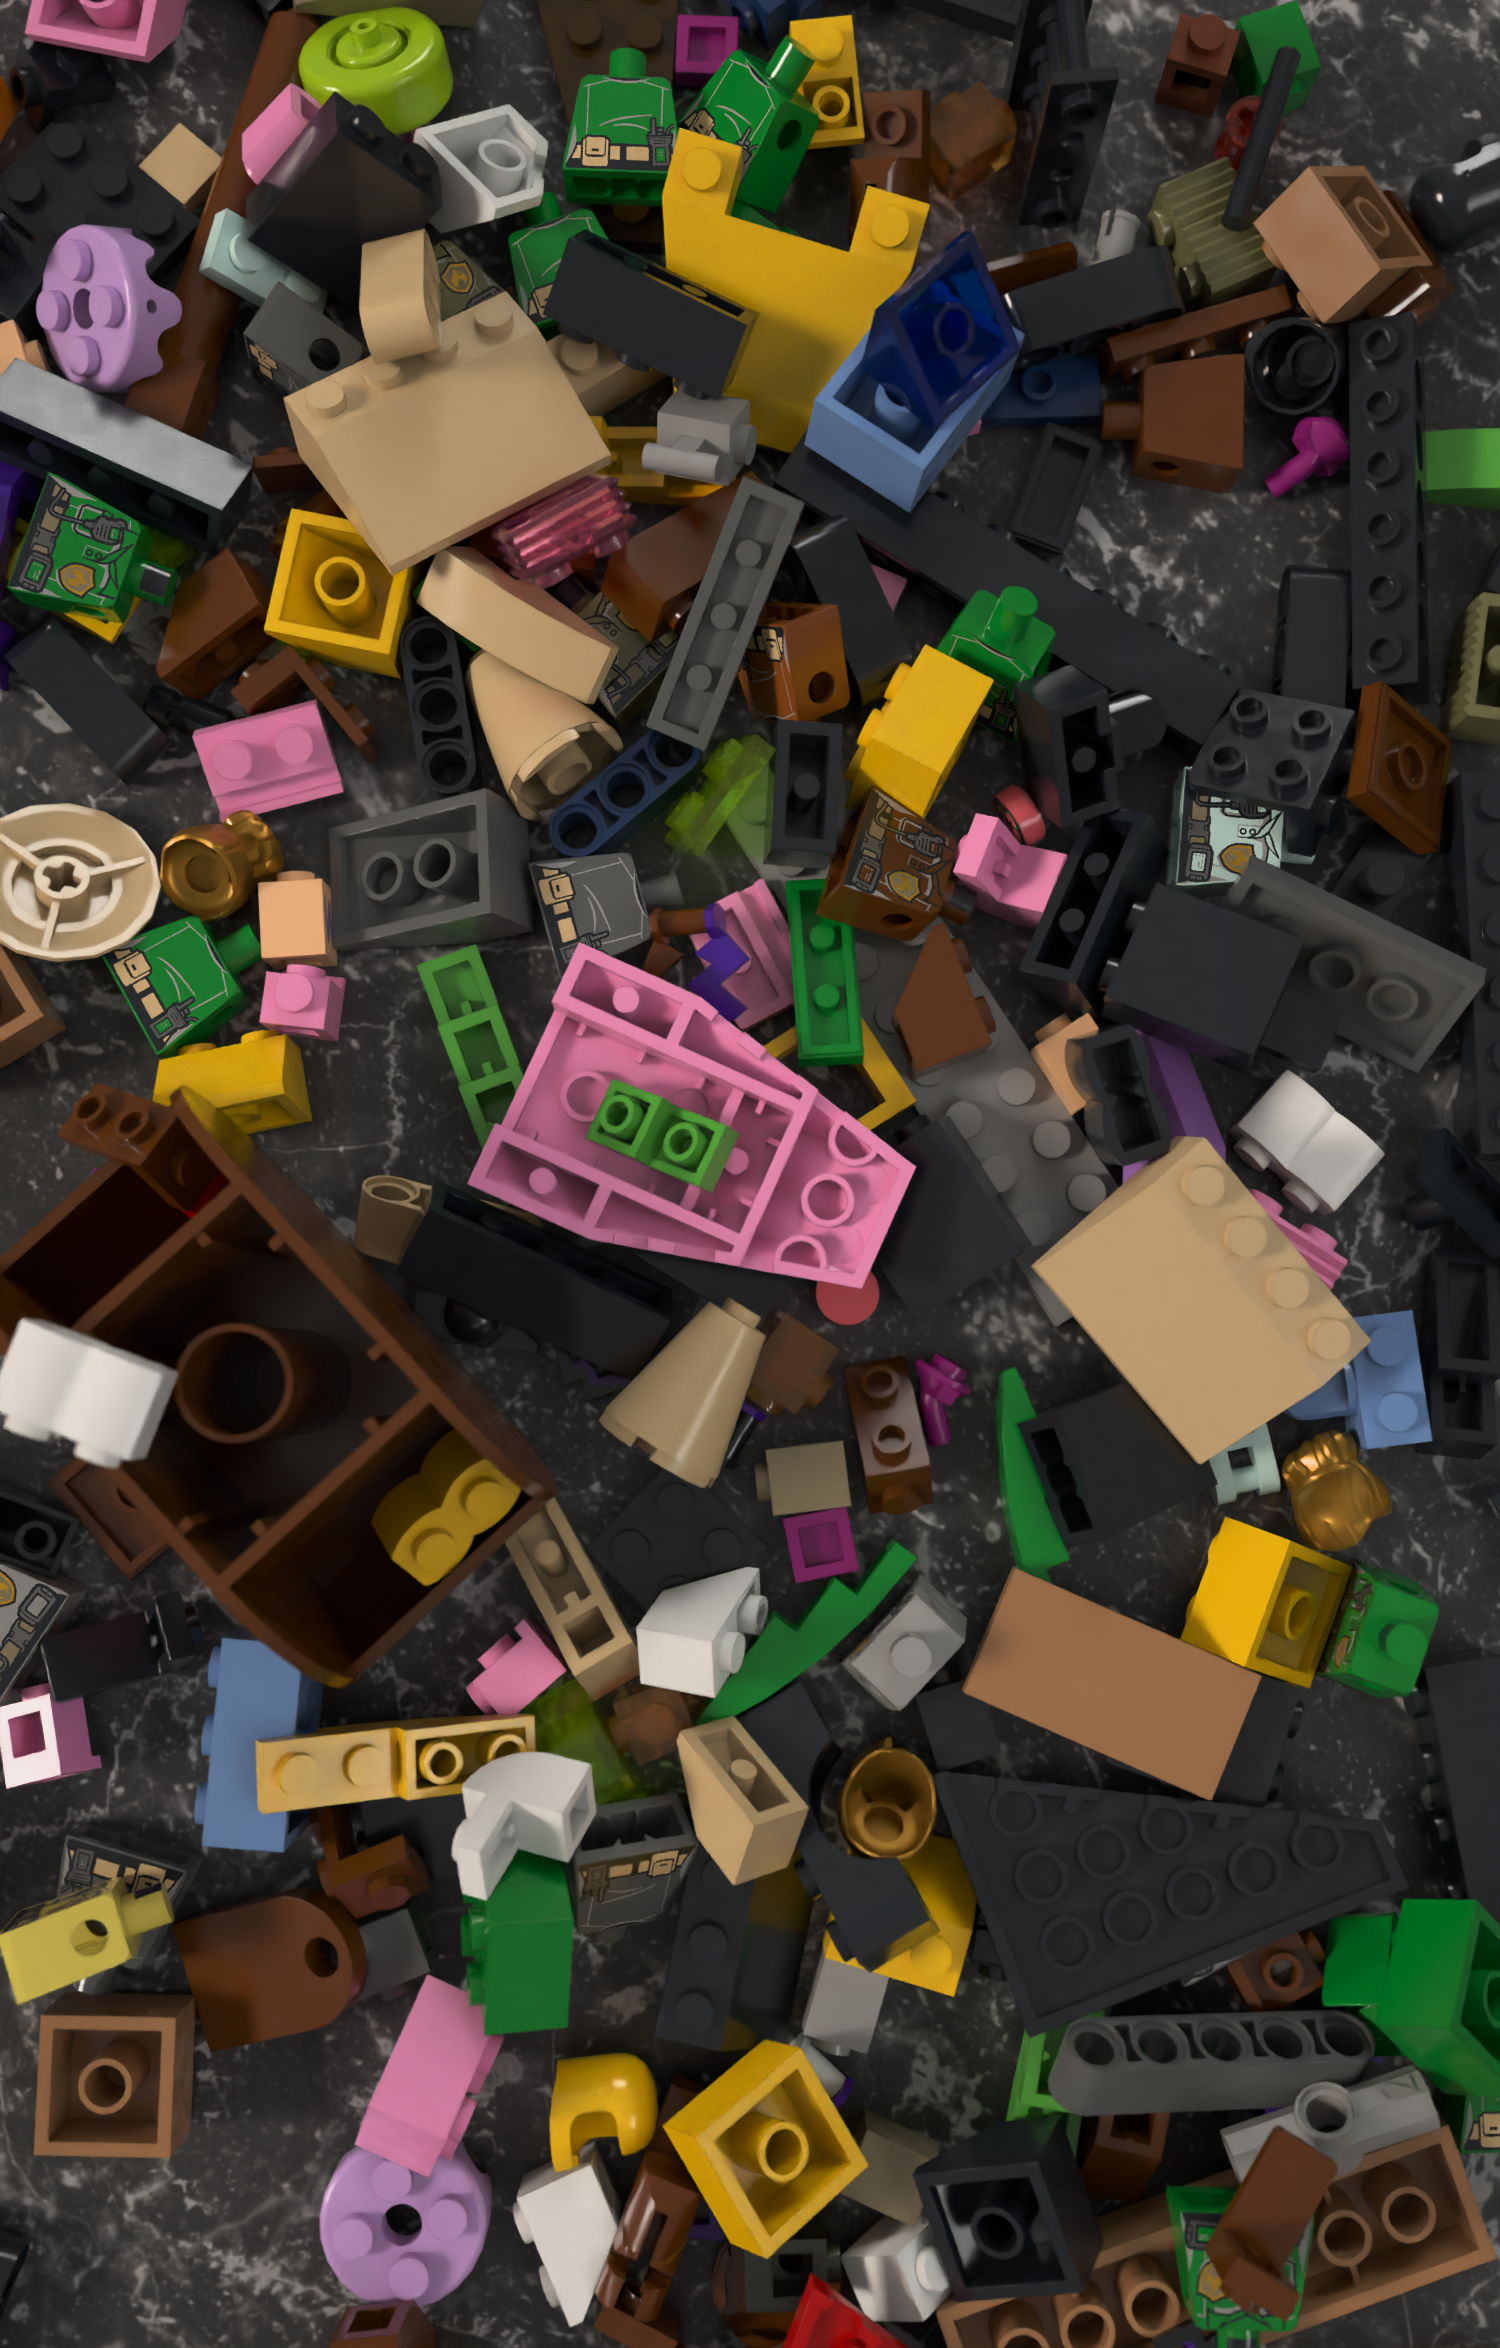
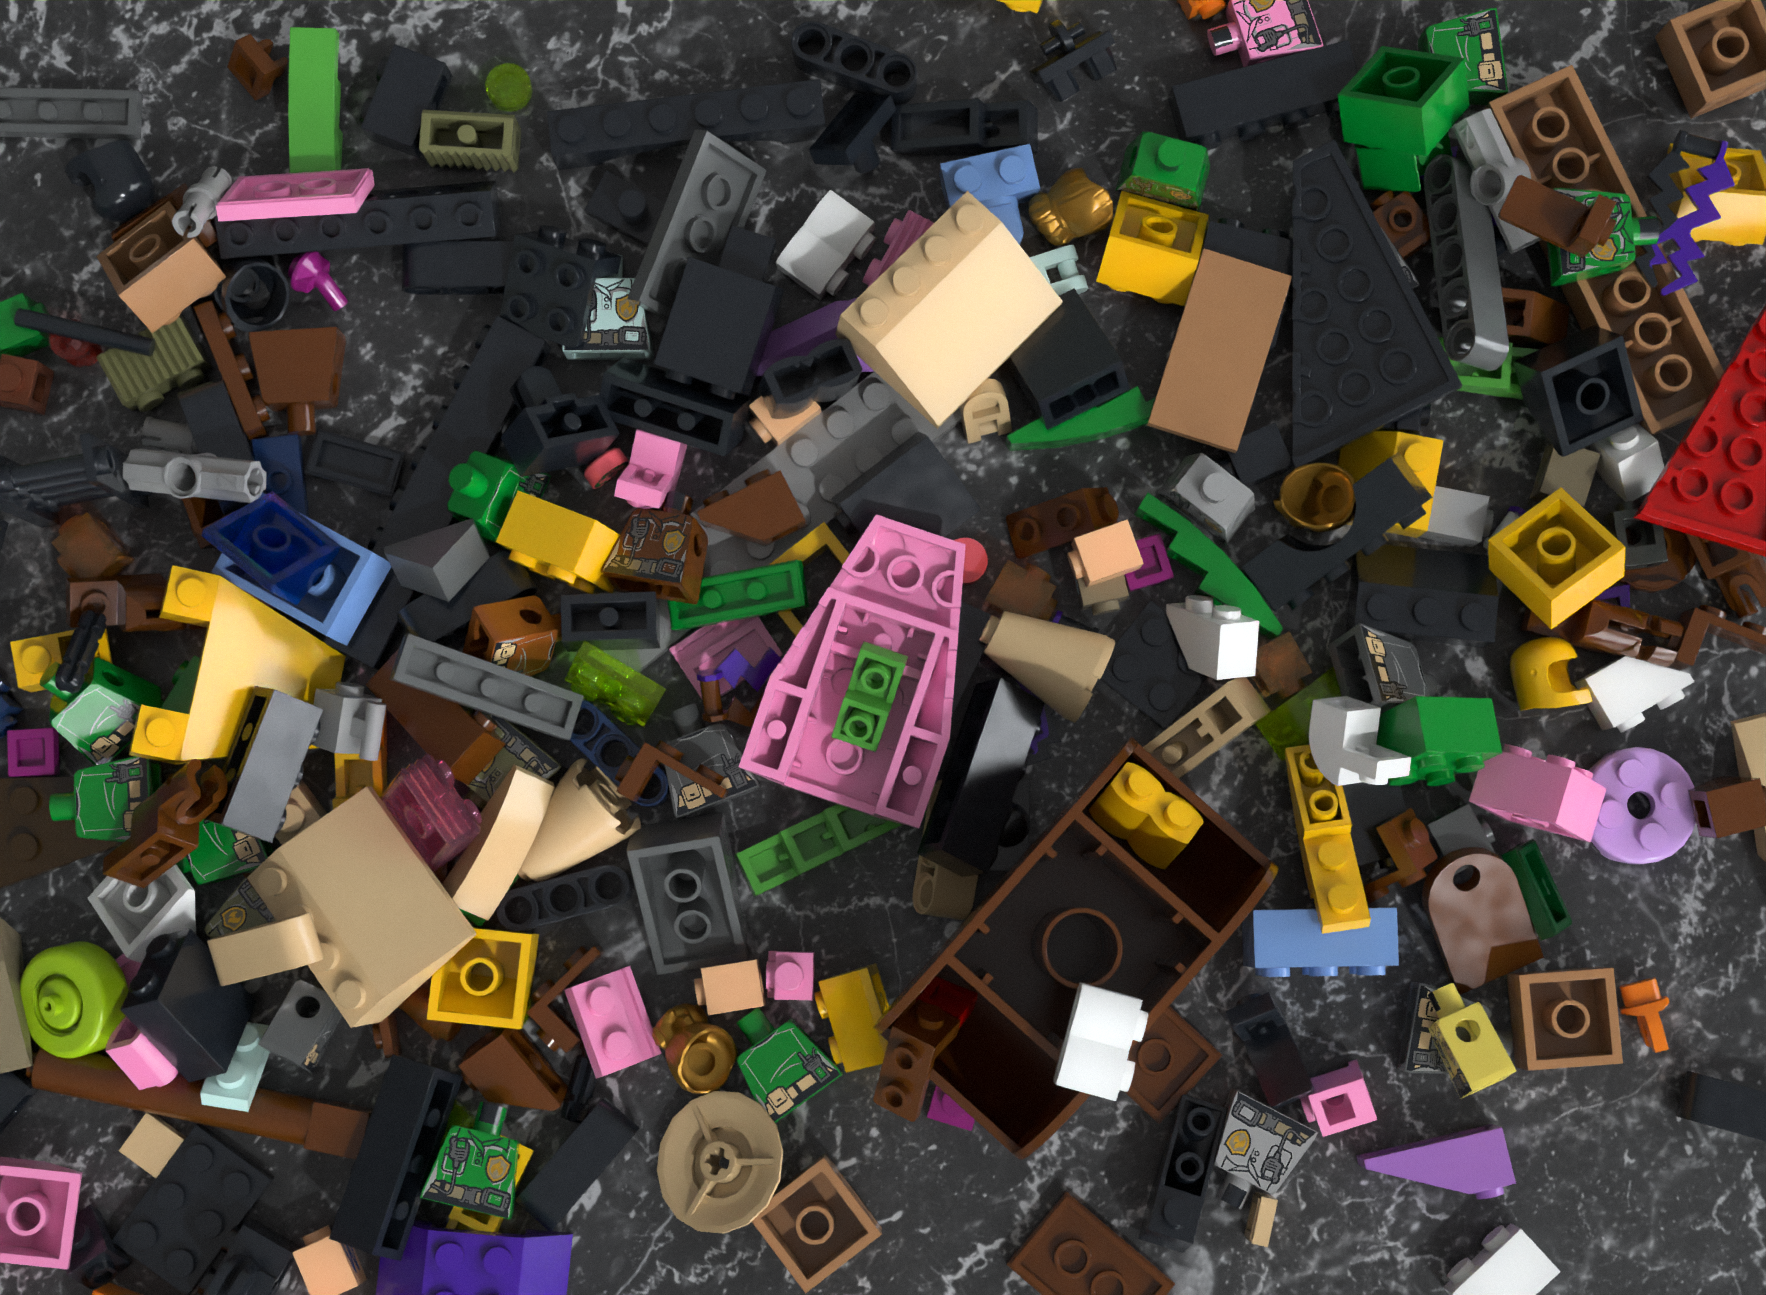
camera: 90 degrees left, 0 degrees up
(104, 308) = (283, 1160): lavender plate -> none
(127, 2192) = (1645, 1001): none -> orange piece
(304, 2056) = (1538, 889): none -> dark green tile
(517, 1670) = (1256, 768): bright pink brick -> none
(581, 180) = (166, 825): none -> reddish brown plate
(592, 812) = (637, 771): none -> reddish brown bracket
(739, 1800) = (1326, 597): tan slope -> none
(826, 90) = (80, 651): none -> black axle
(832, 1486) = (1105, 554): none -> light nougat brick
(909, 572) = (439, 560): none -> dark grey slope
(940, 1383) = (1023, 488): magenta plate -> none
(1051, 251) = (214, 475): none -> light grey piece
(1052, 1341) = (986, 412): none -> tan plate
(1399, 768) = (550, 198): reddish brown tile -> none
(1430, 291) = (201, 201): none -> light grey pin
(1430, 422) = (296, 194): none -> bright pink tile

